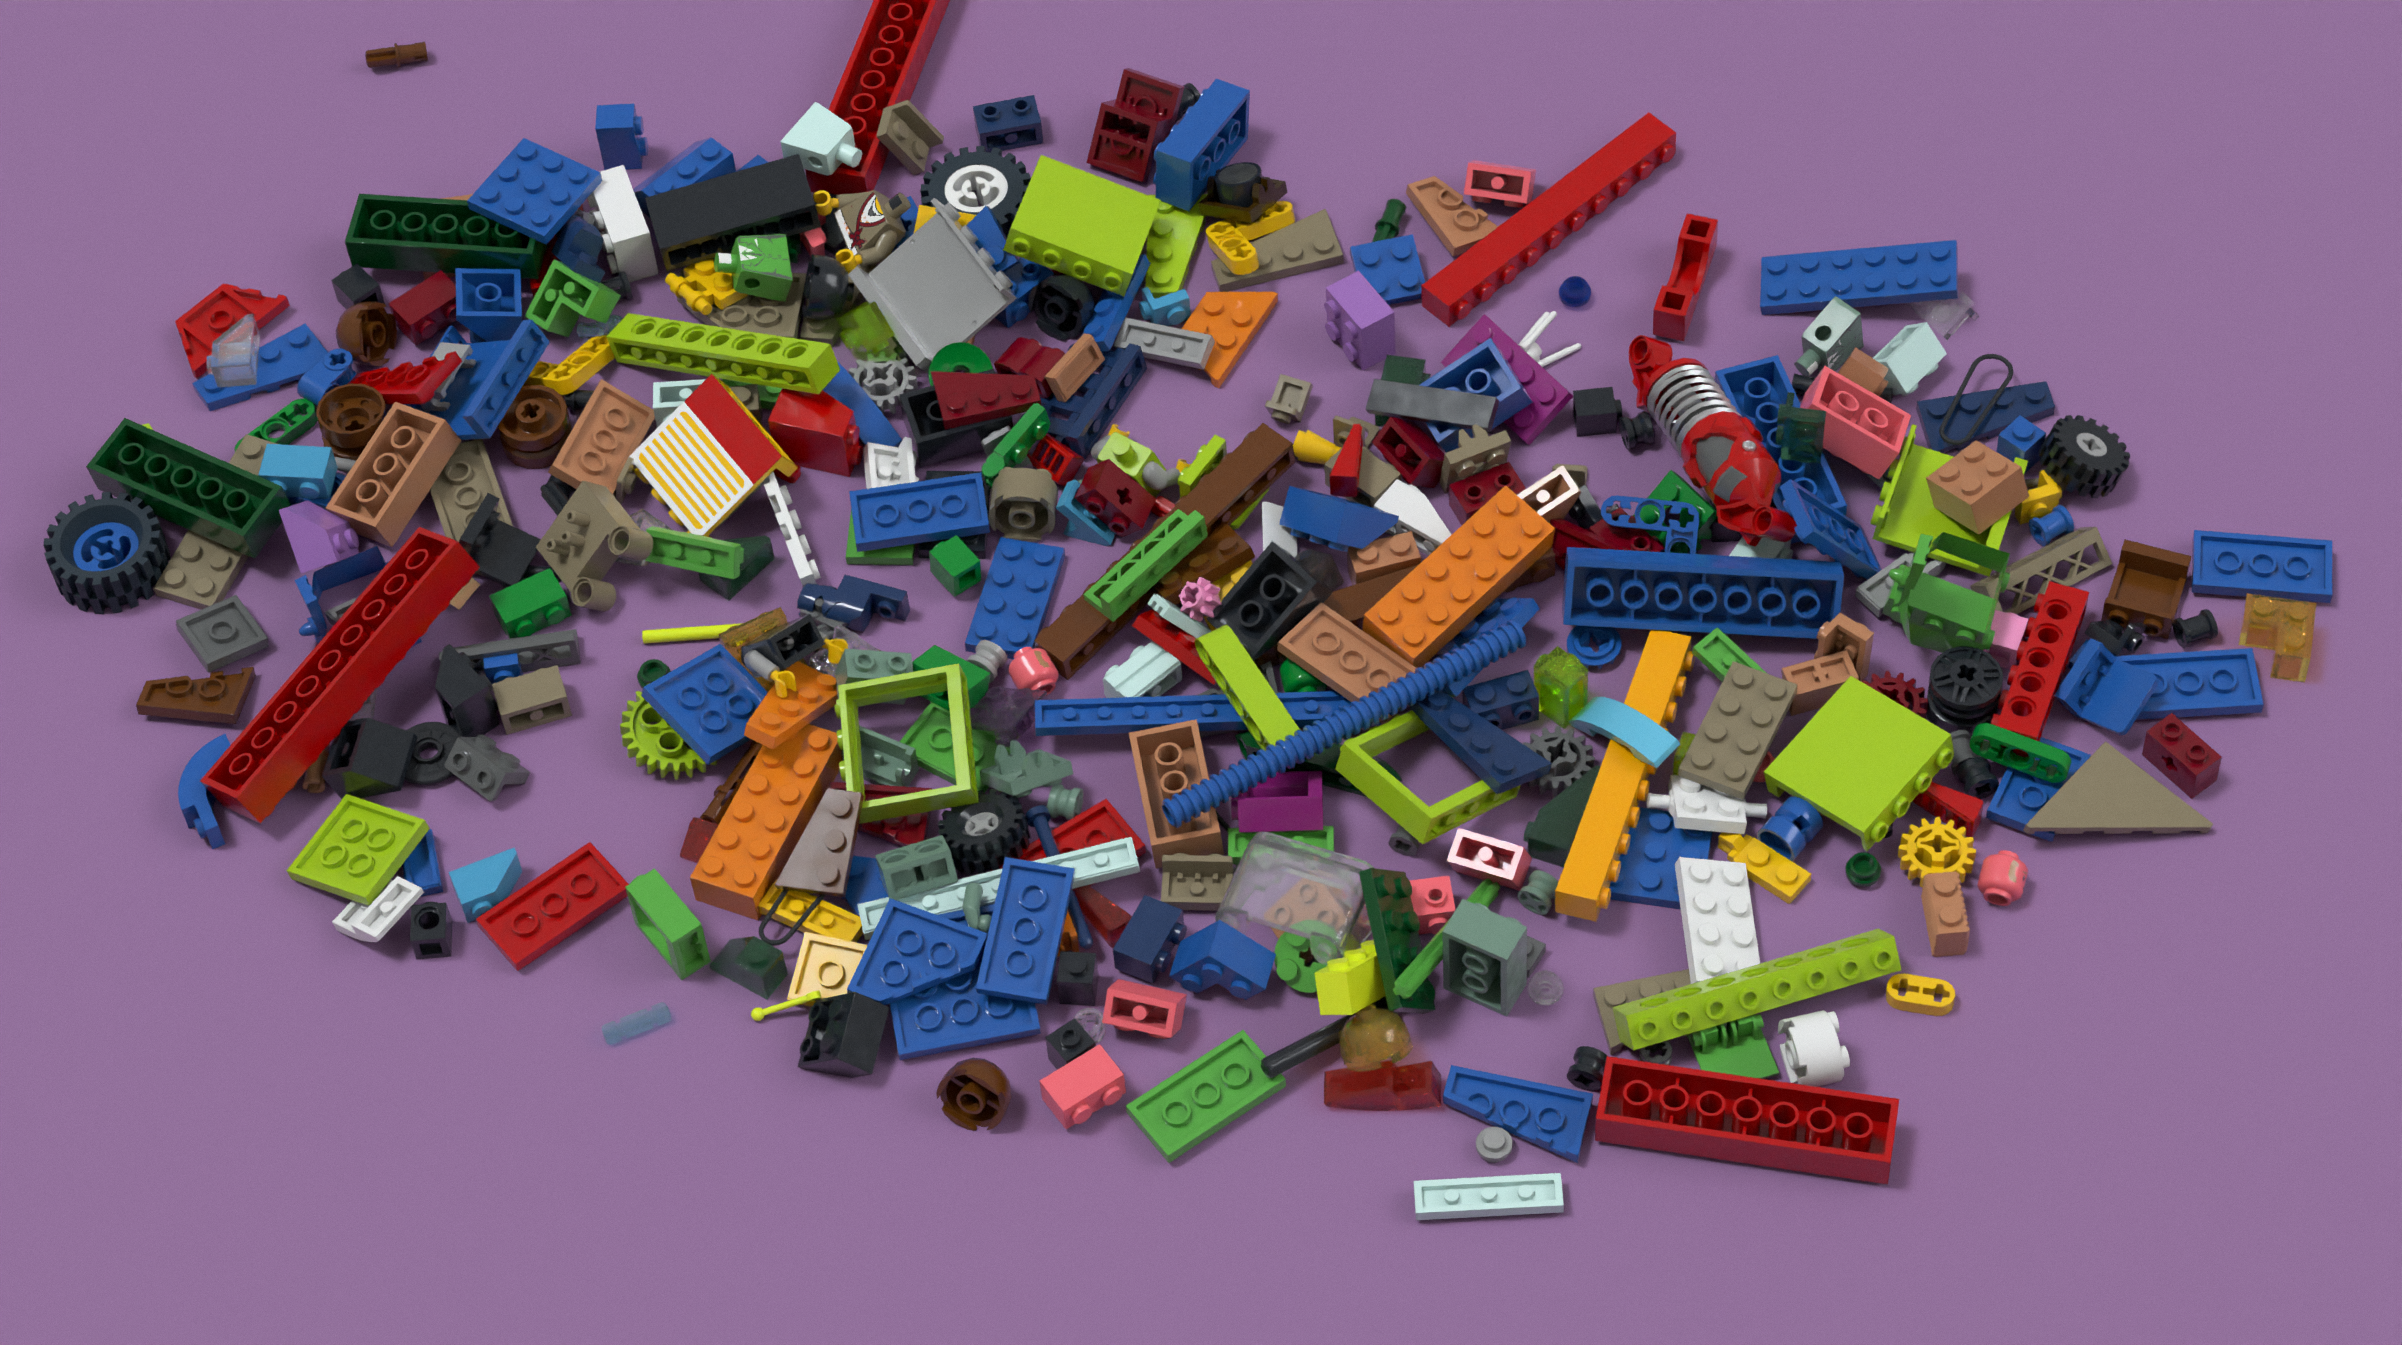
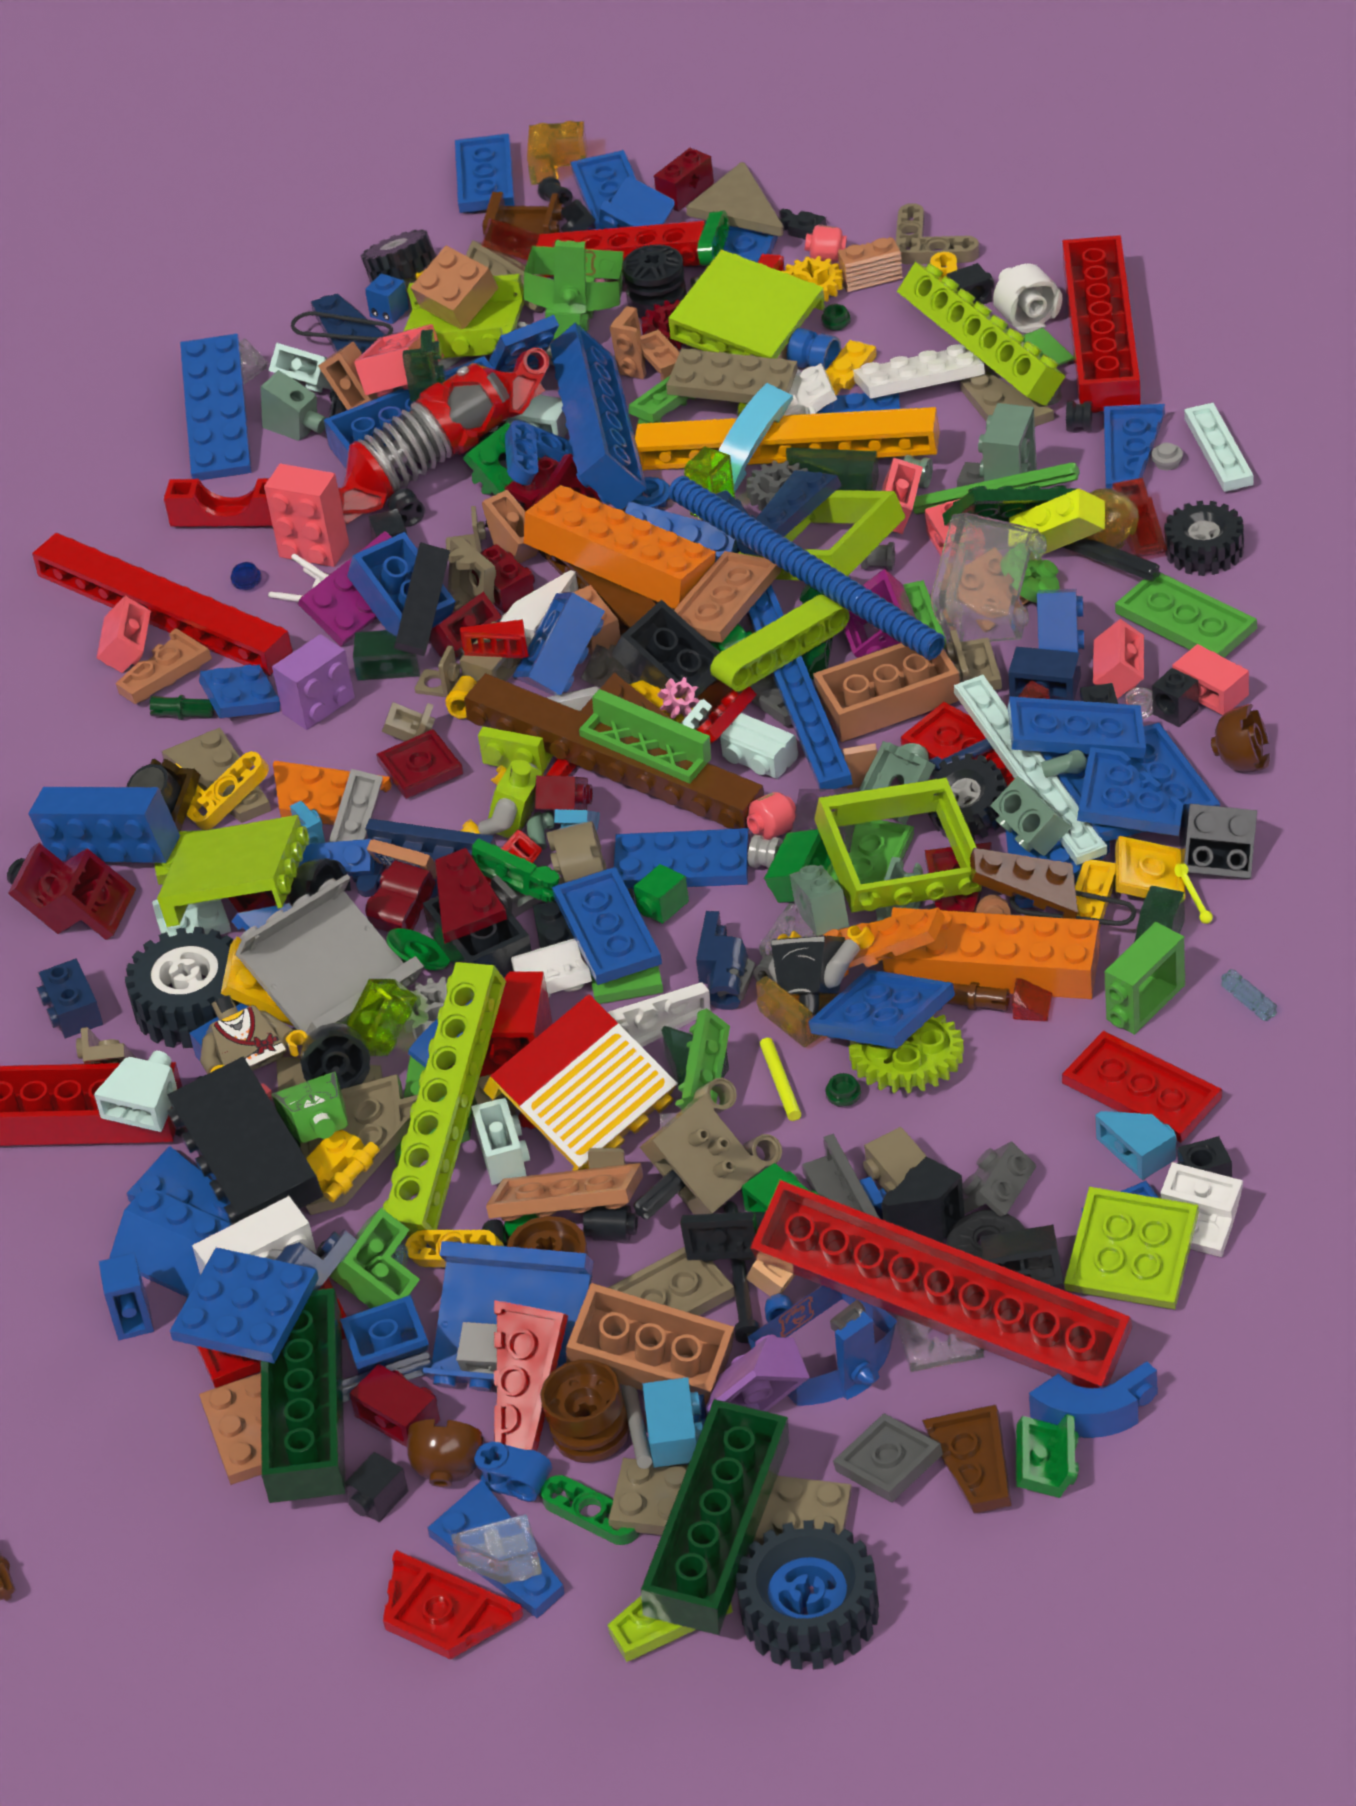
camera: 100 degrees left, 10 degrees down
(169, 741) = (1046, 1455): none -> green bracket
(1090, 758) = (859, 761): none -> nougat slope
(1229, 405) = (419, 763): none -> dark red plate
(1326, 1124) = (1204, 538): none -> black wheel
(1609, 323) = (307, 514): none -> coral brick
(1873, 1008) = (974, 281): none -> black brick
(1985, 981) = (963, 247): none -> dark tan beam
(2067, 871) = (800, 224): none -> black plate
(2096, 563) = (509, 239): none -> clear red slope

